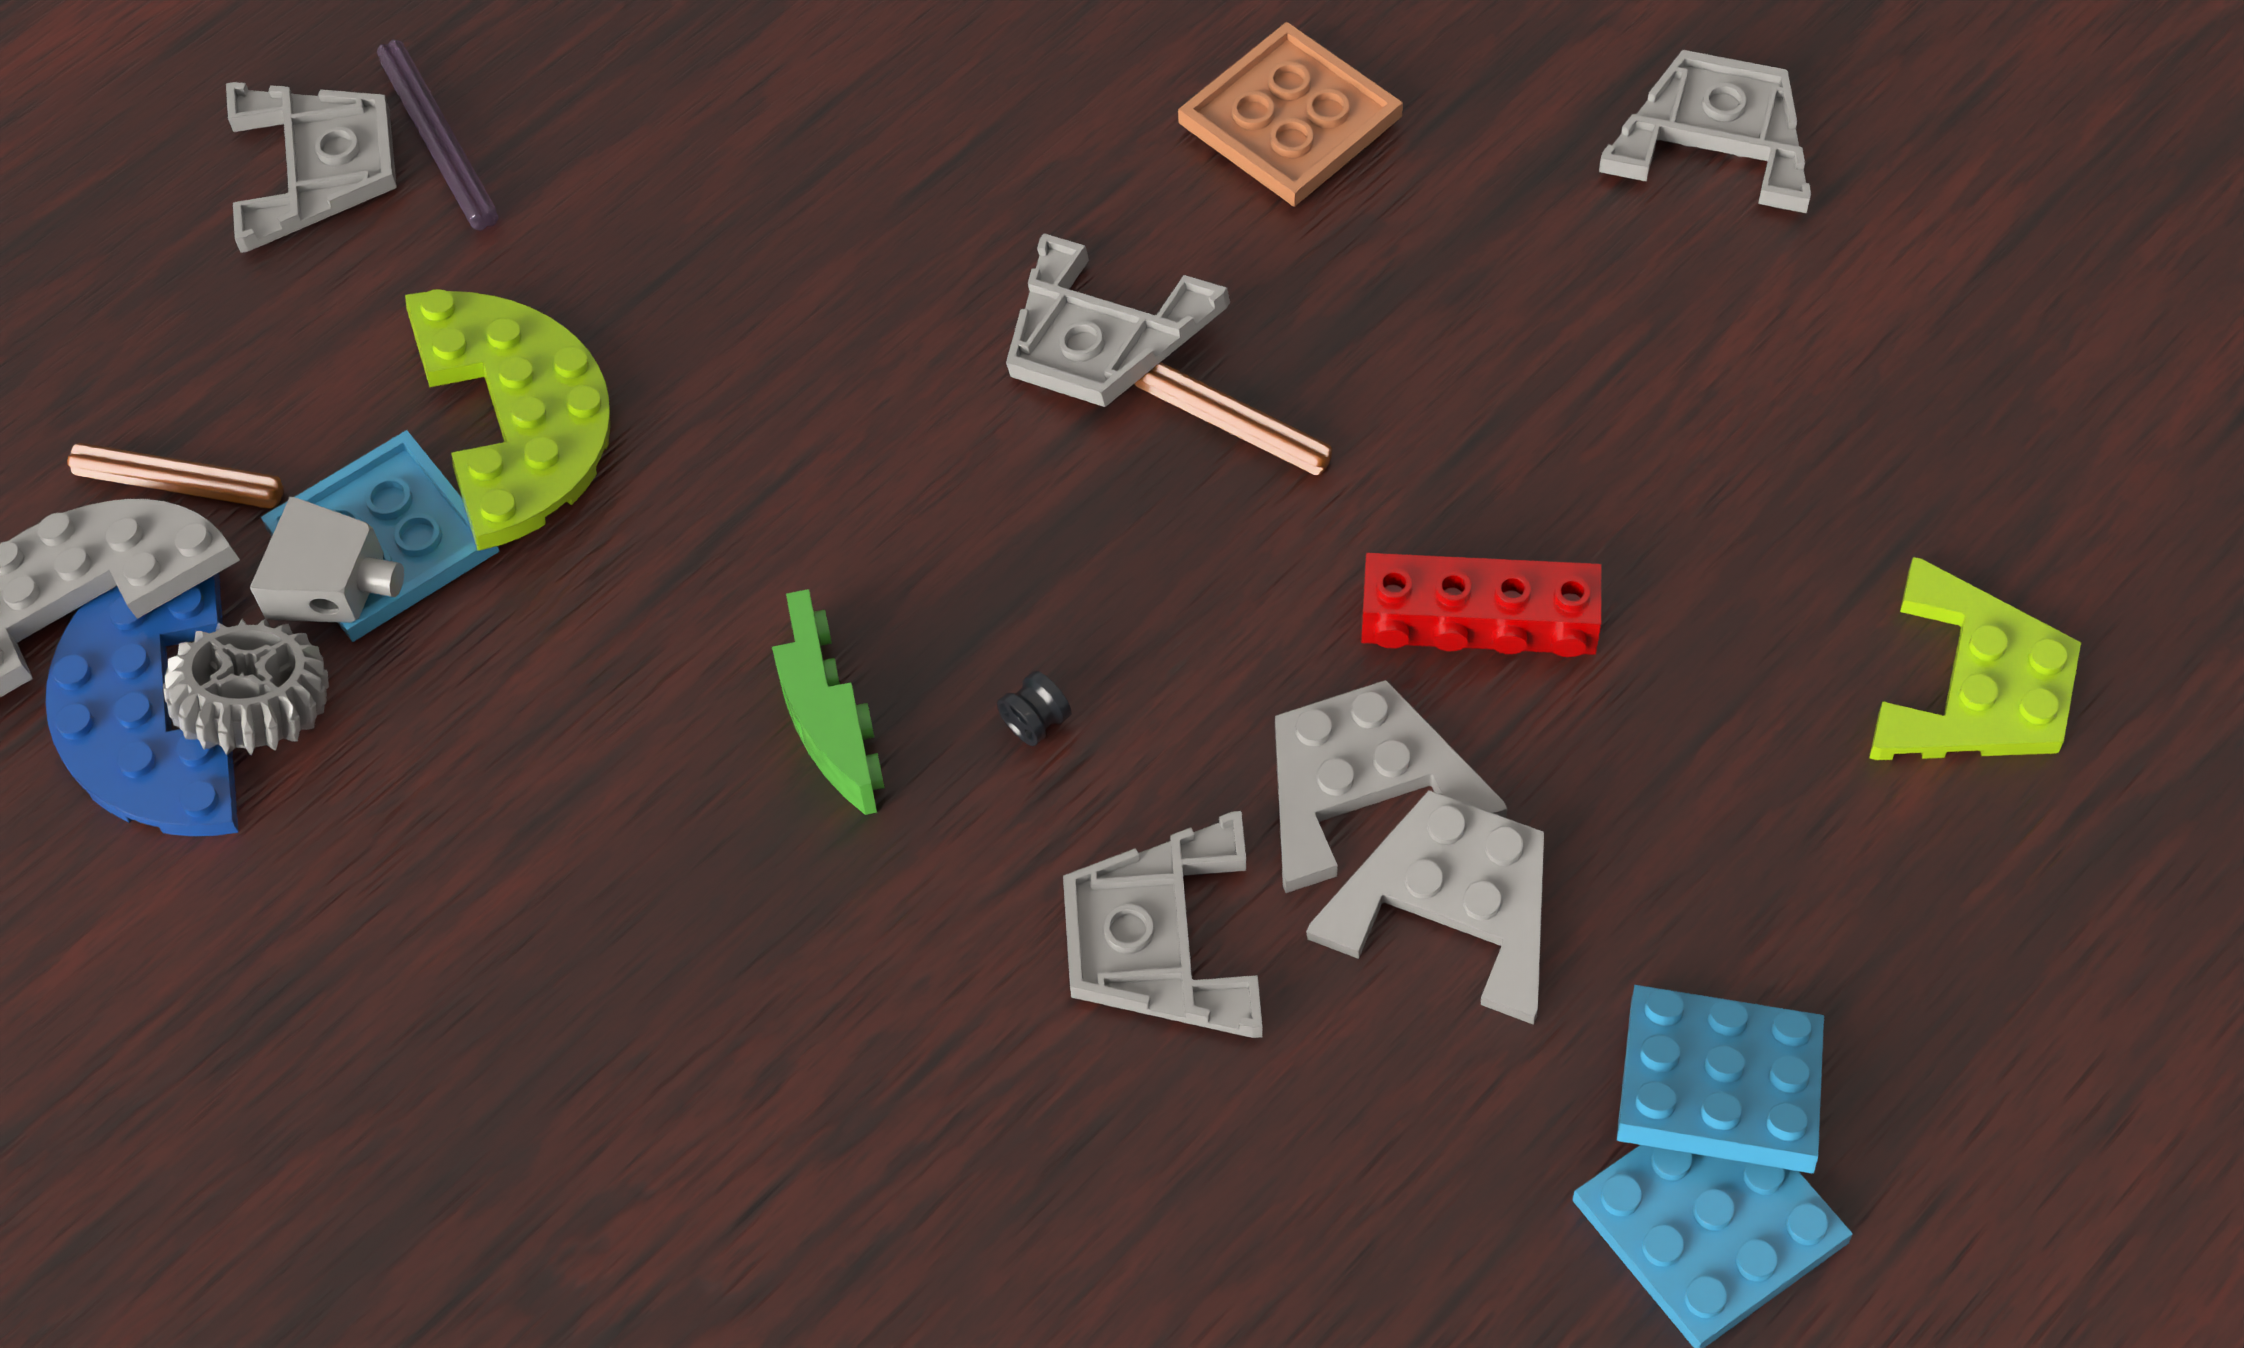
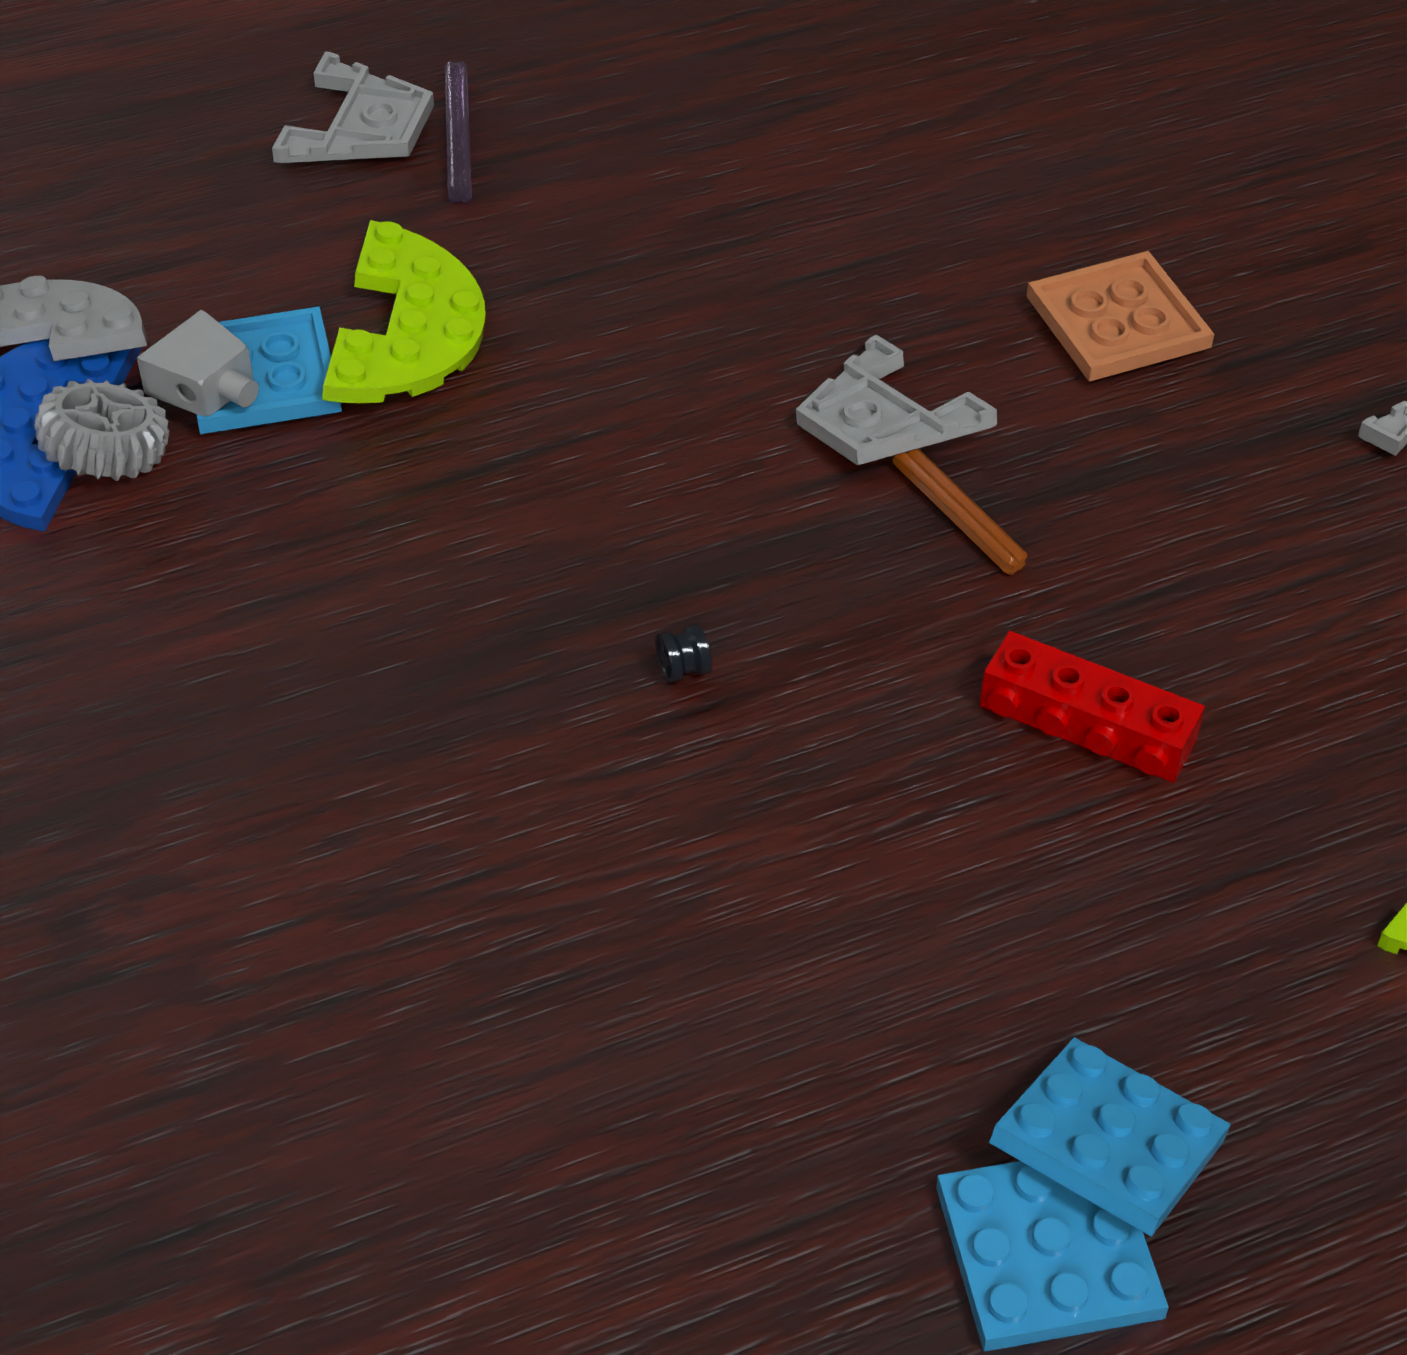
camera: 20 degrees right, 10 degrees down
(176, 475) = (136, 282): axle -> none
(825, 709) = (521, 592): bright green slope -> none
(1133, 932) = (674, 839): light grey wing -> none
(1354, 756) = (927, 782): light grey wing -> none
(1460, 872) = (968, 896): light grey wing -> none

